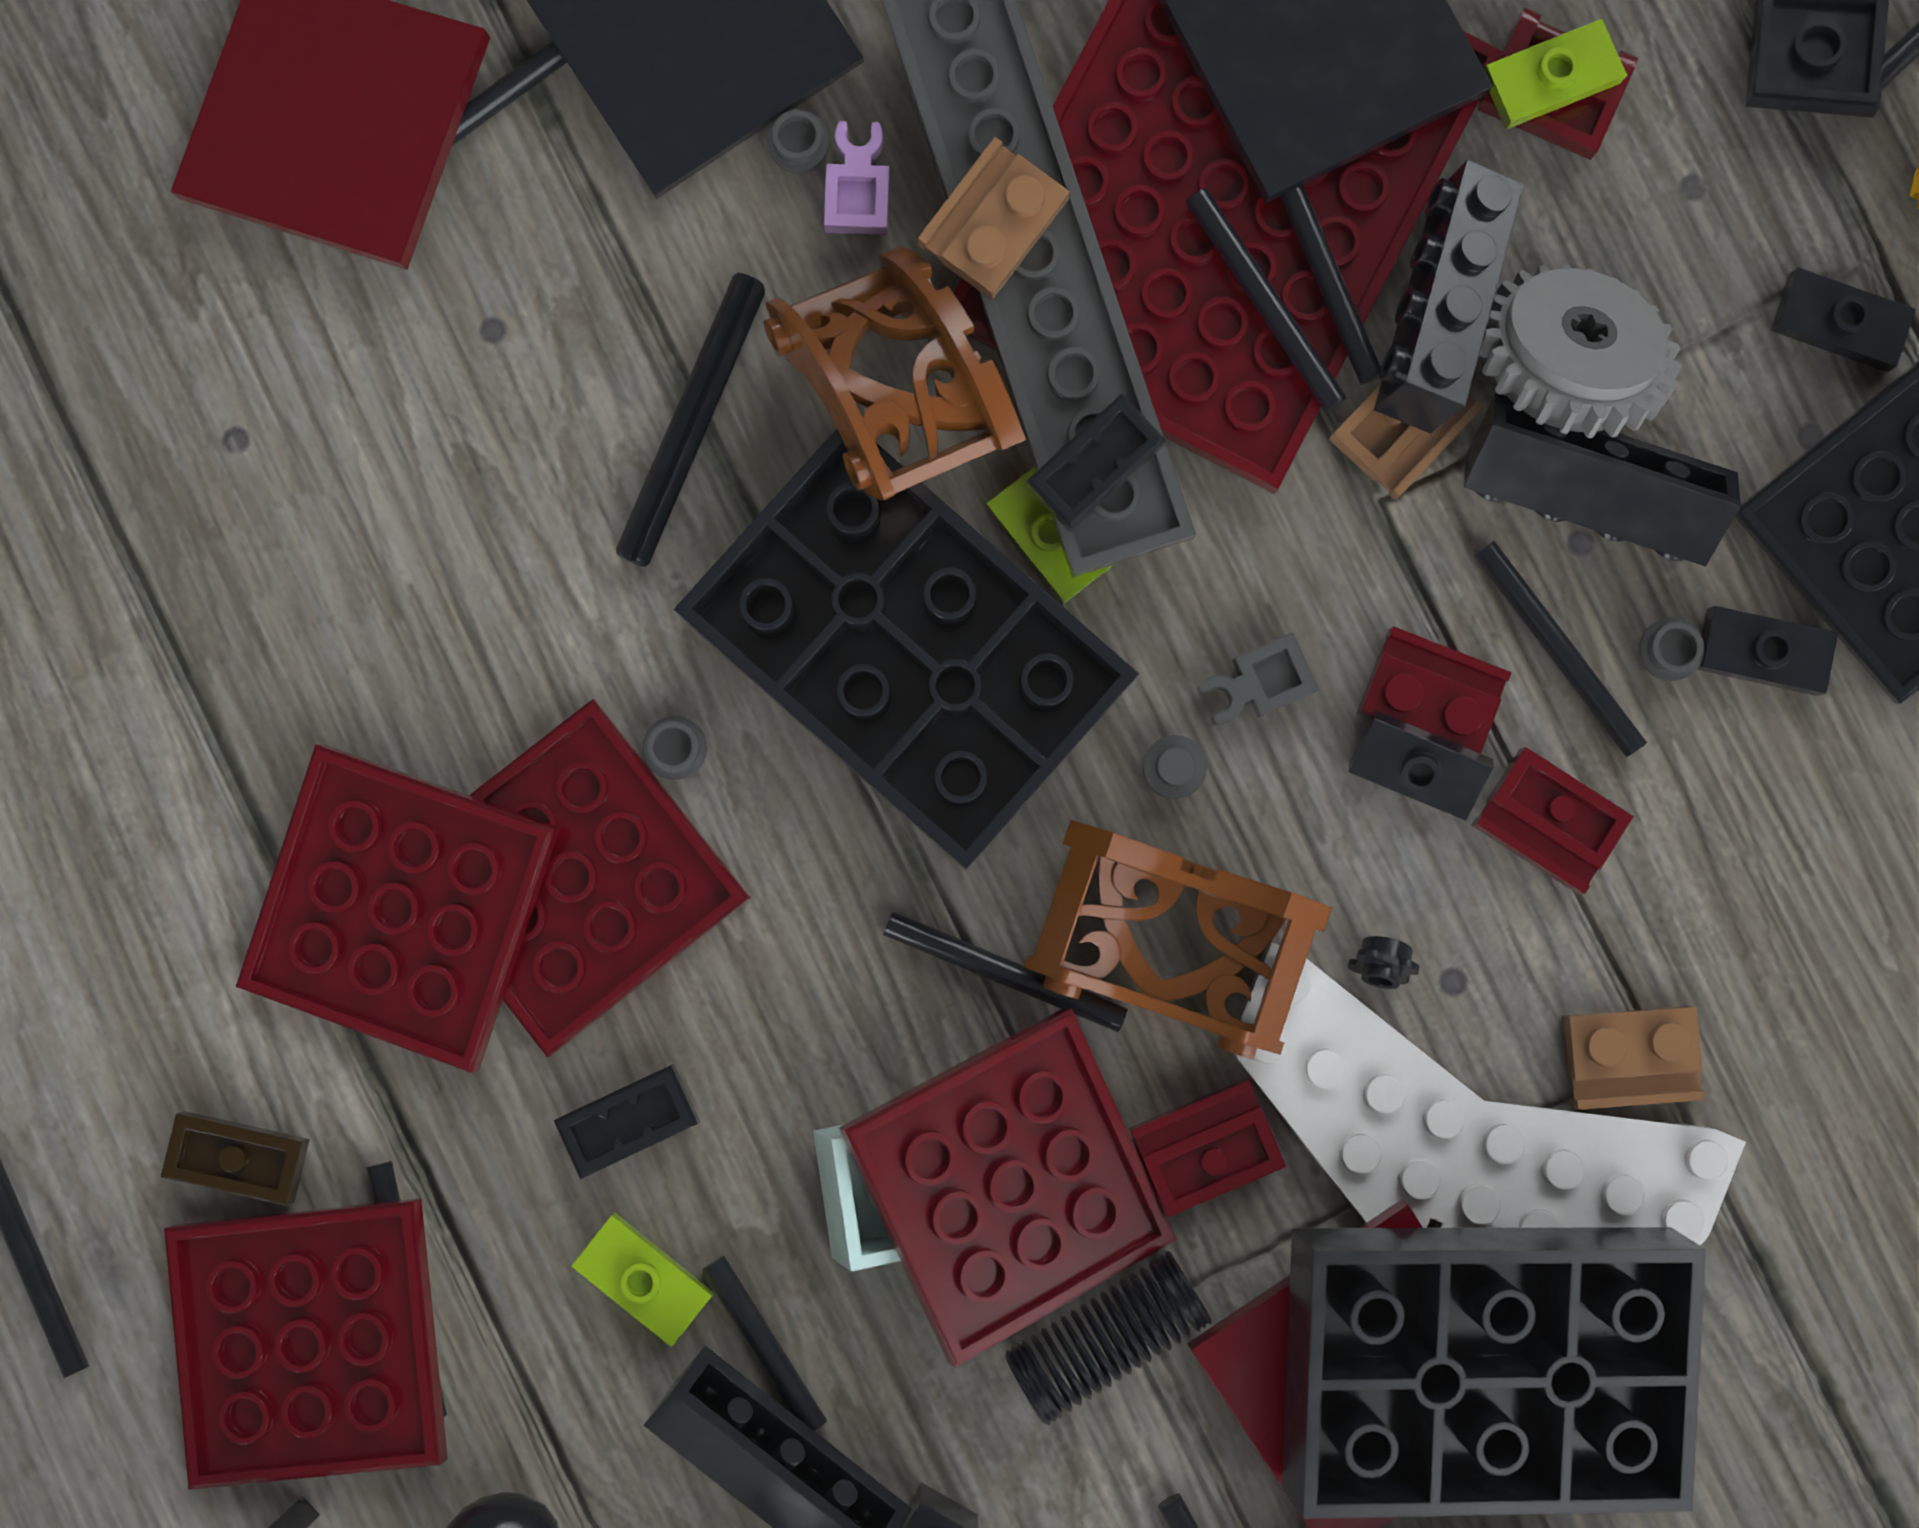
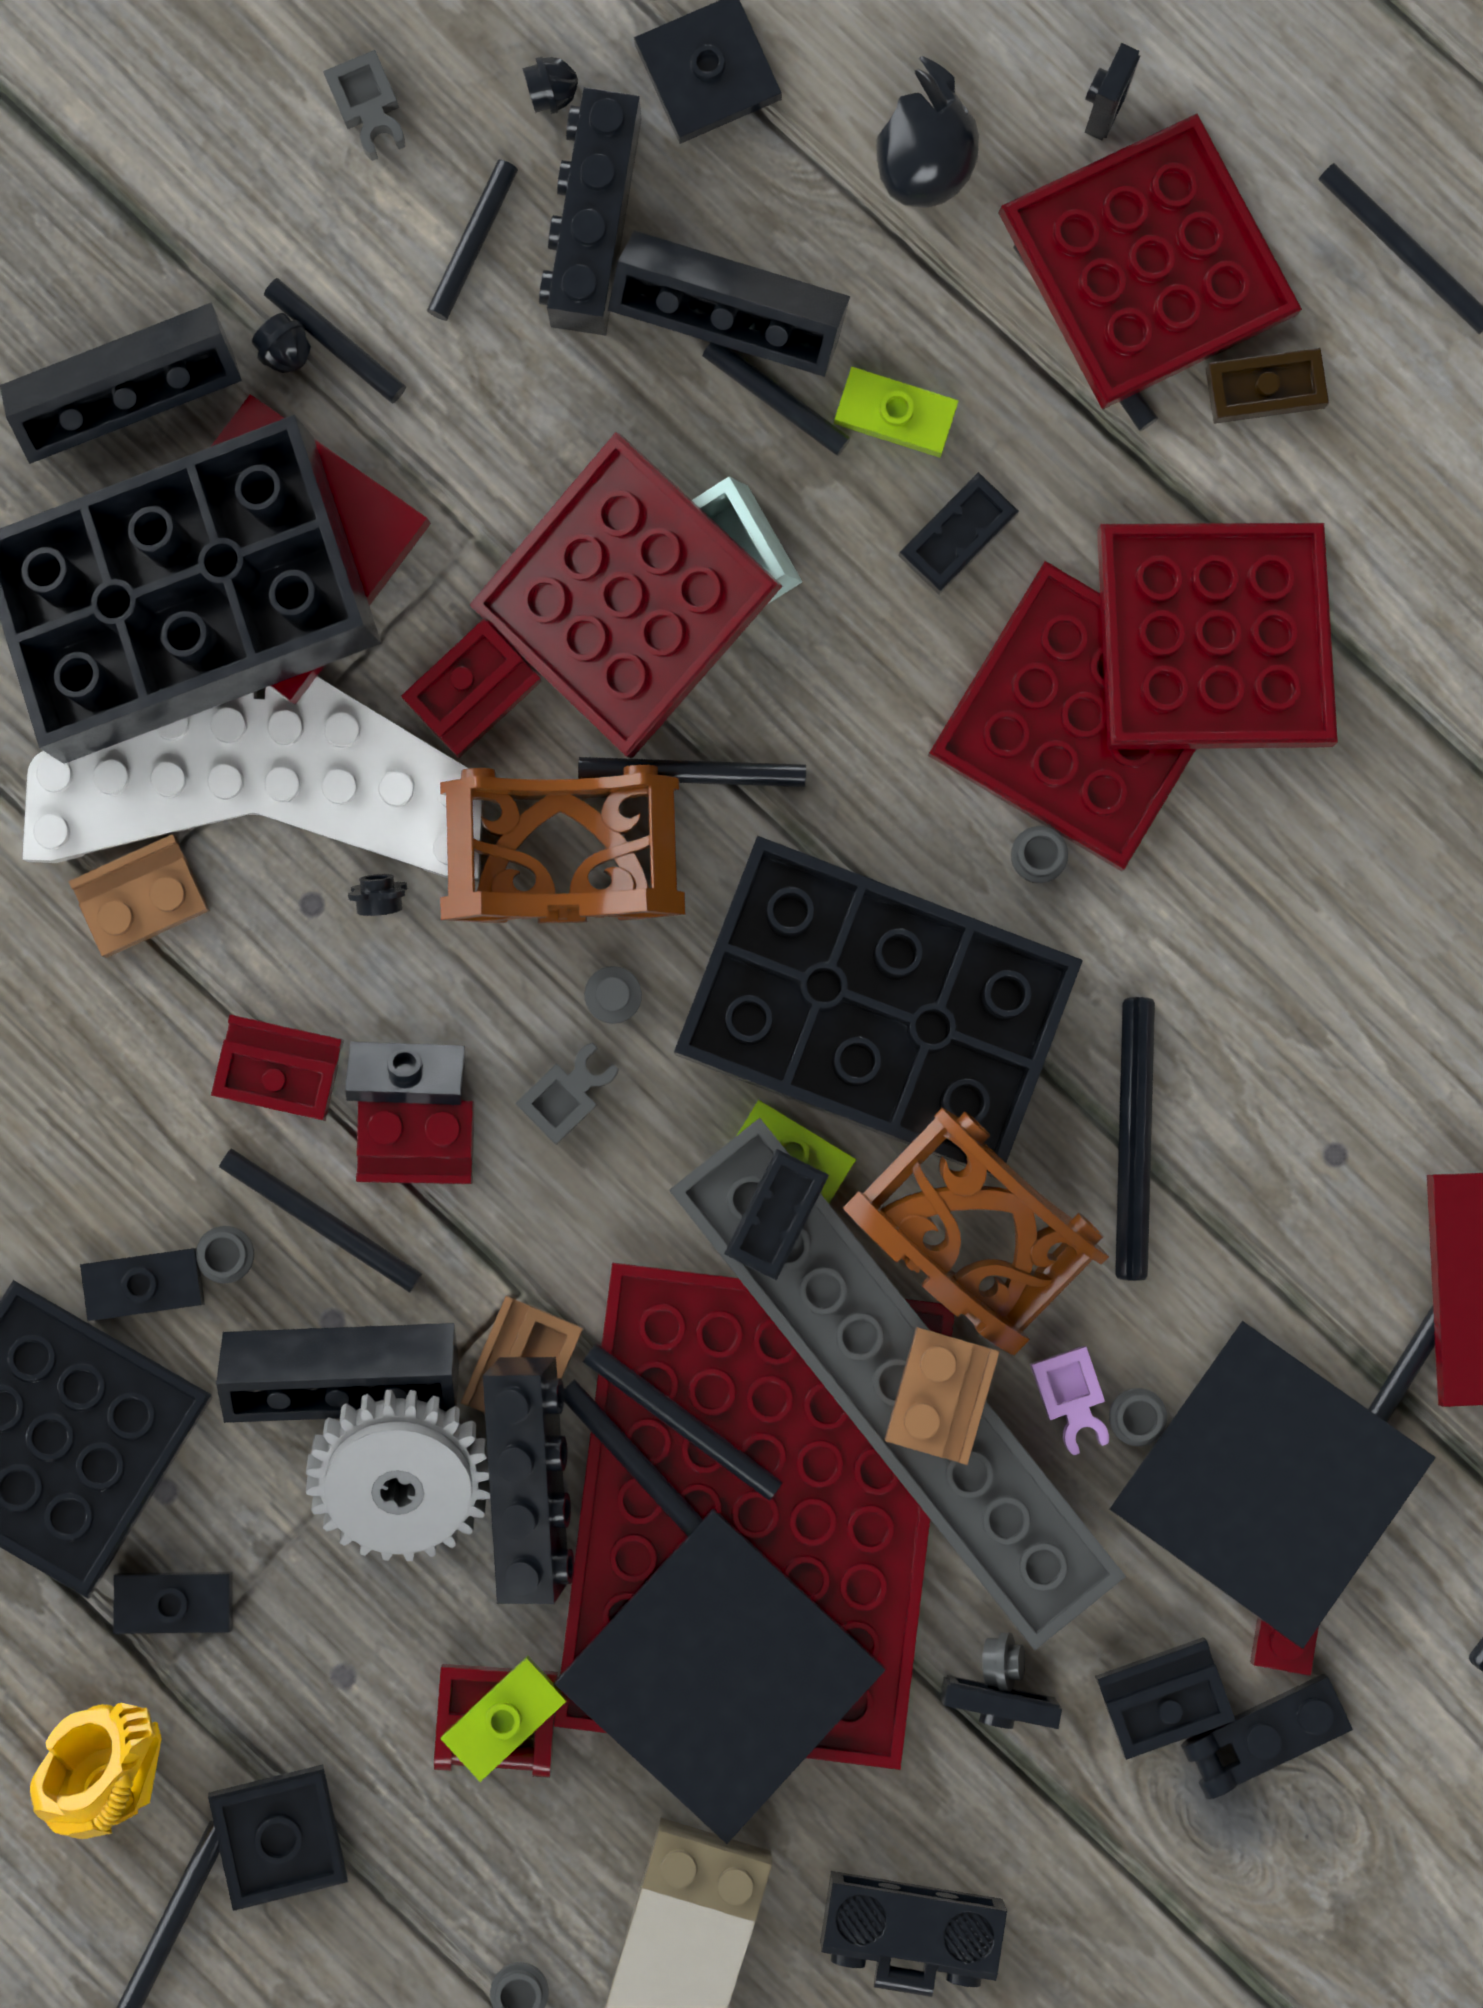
camera: 165 degrees right, 0 degrees up
(1177, 1291) = (546, 457): black piece -> none

